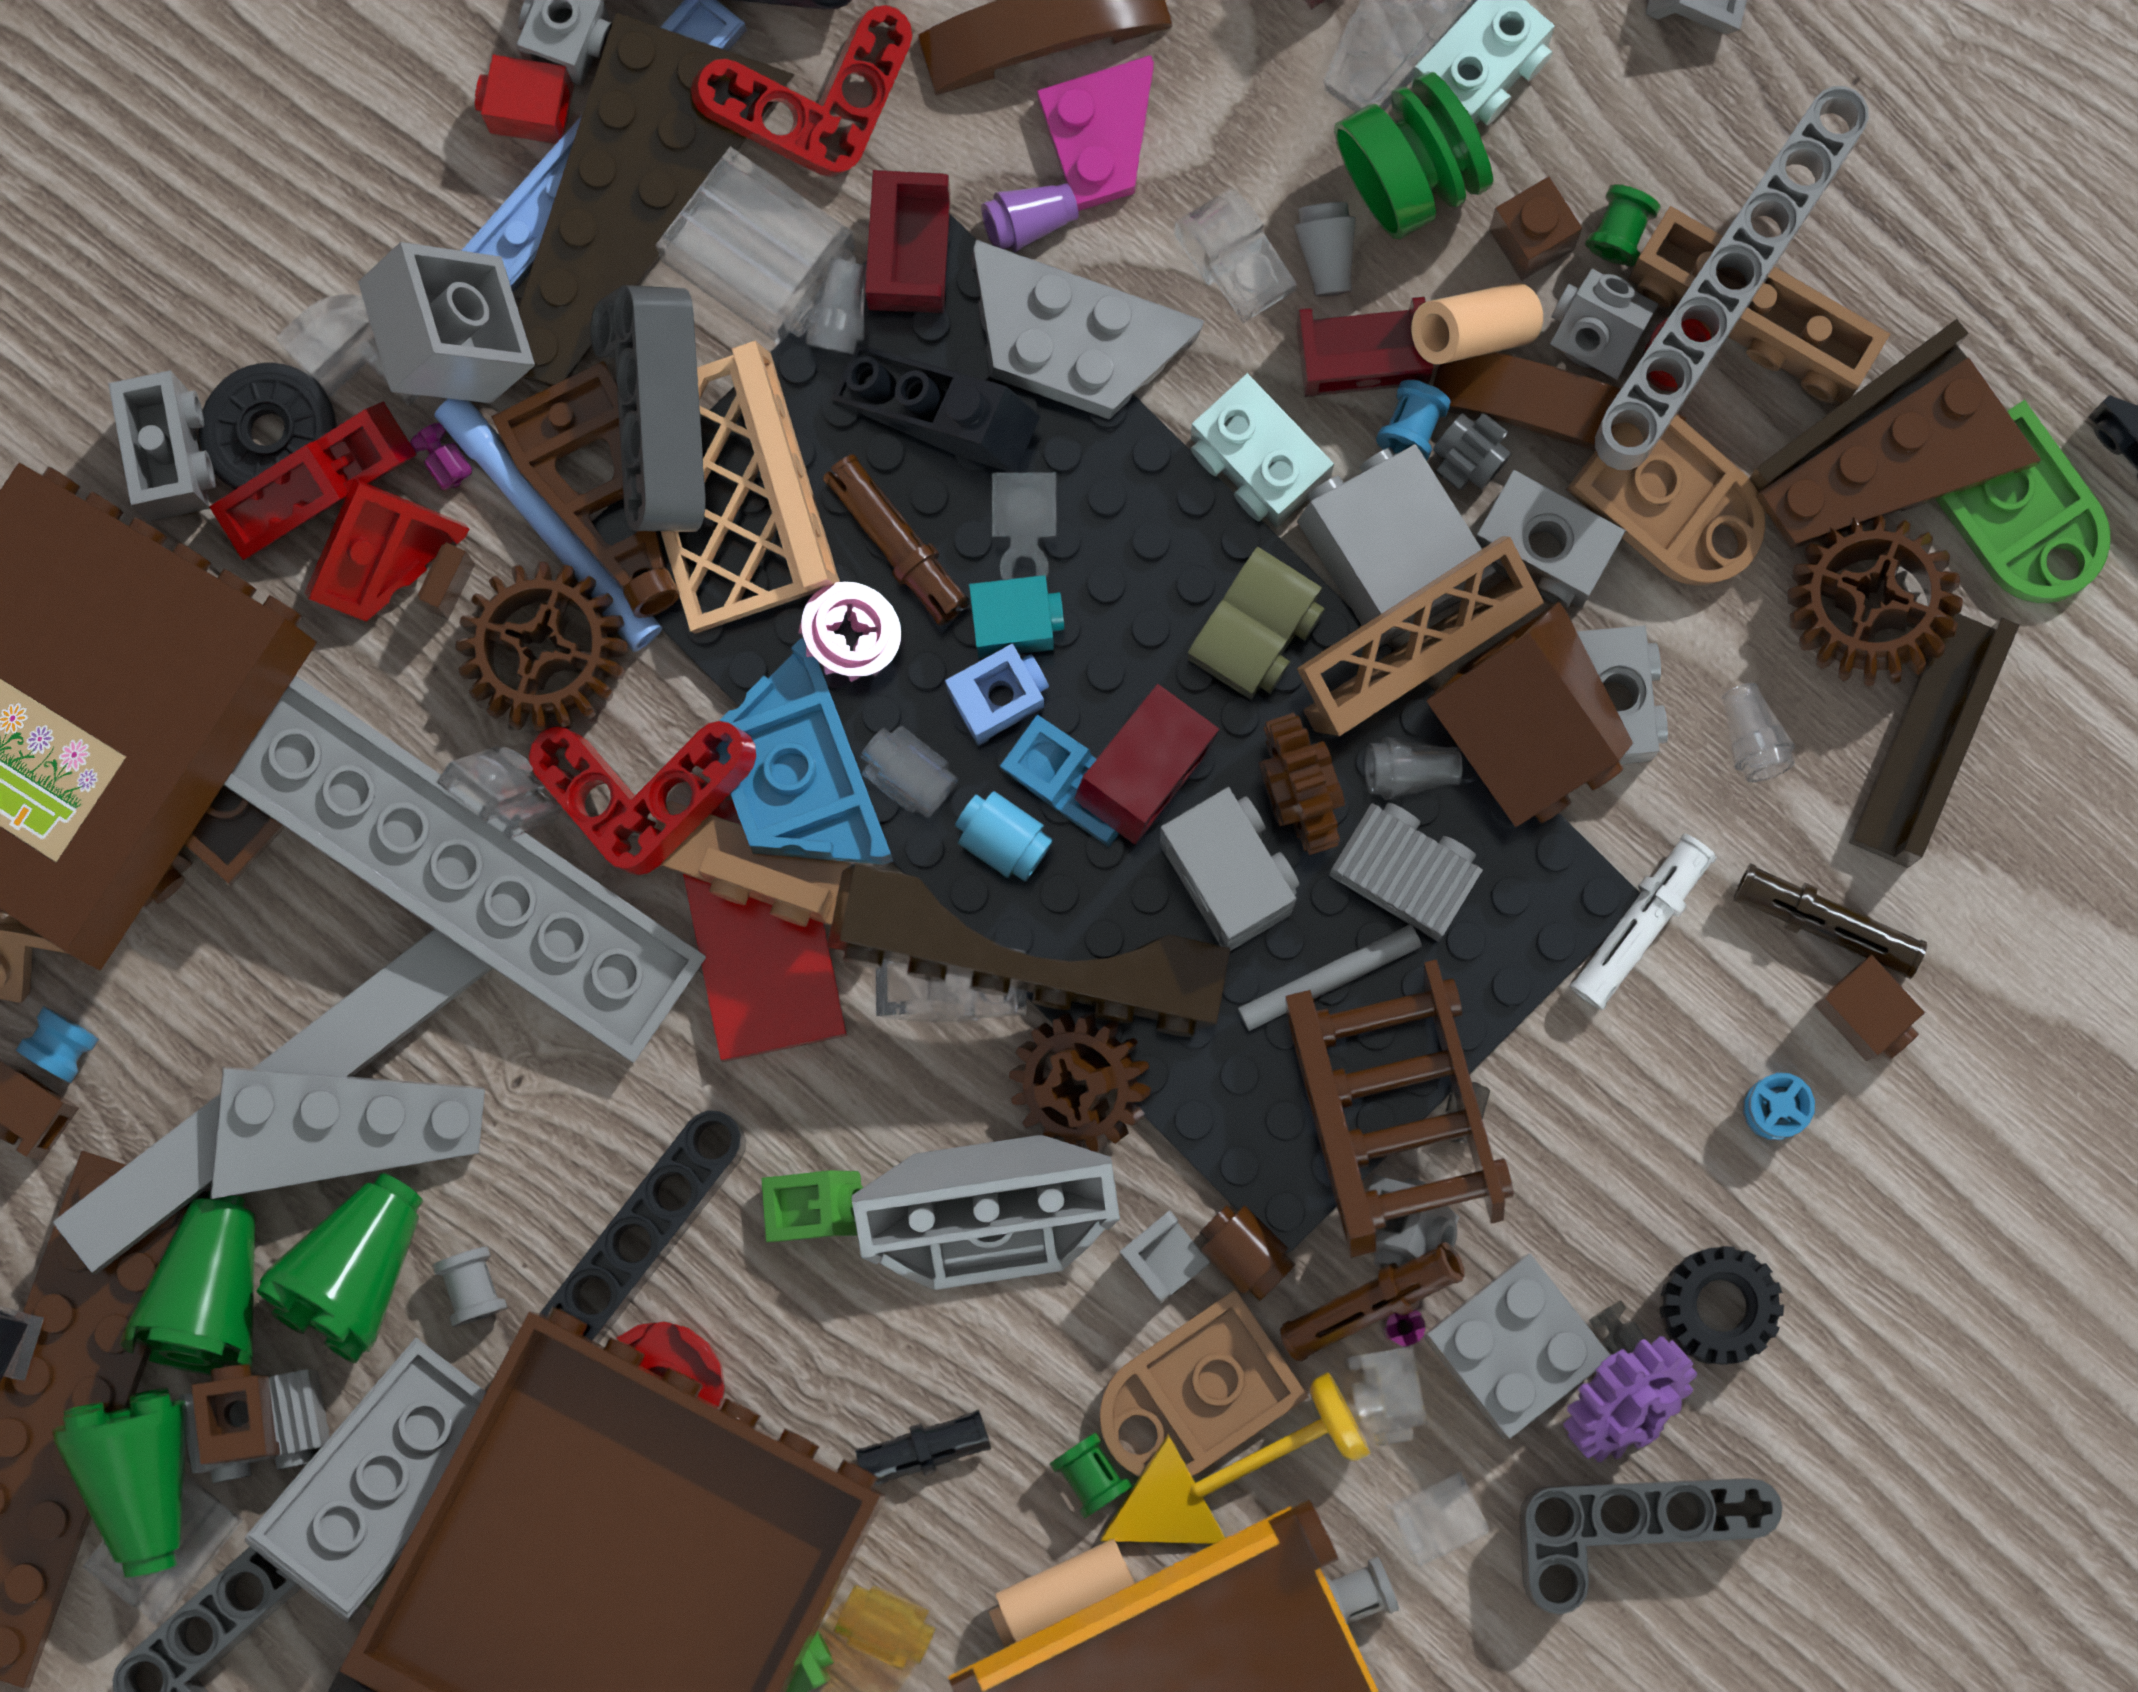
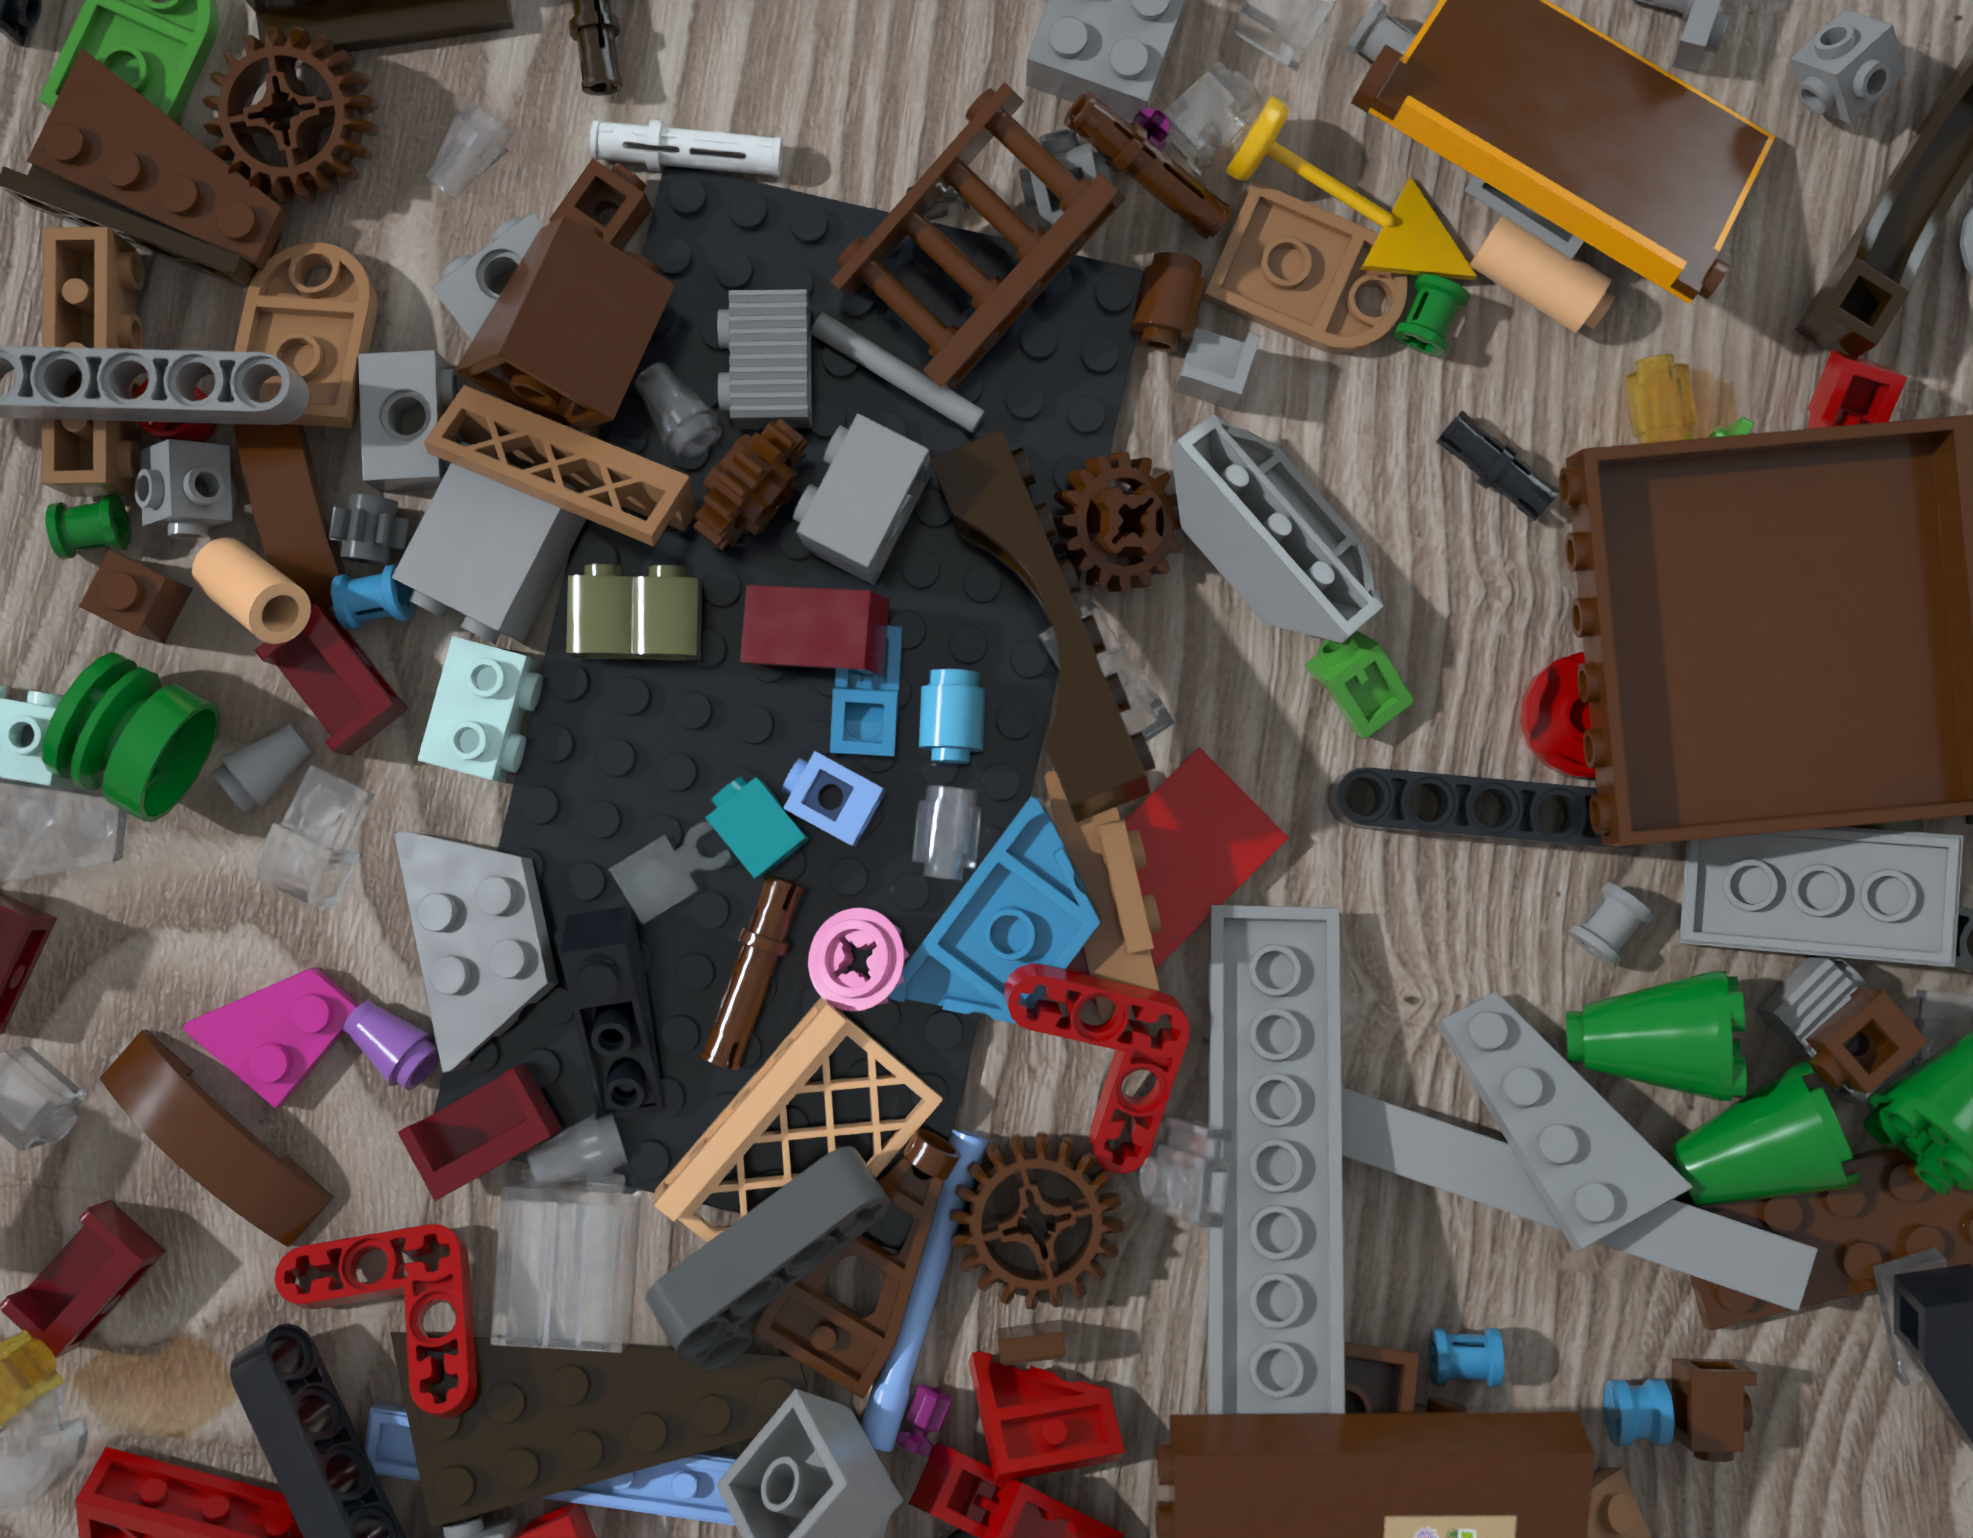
camera: 125 degrees left, 5 degrees up
(197, 930) = (1466, 1357): none -> dark azure bush
(1633, 791) = (603, 189): none -> reddish brown brick

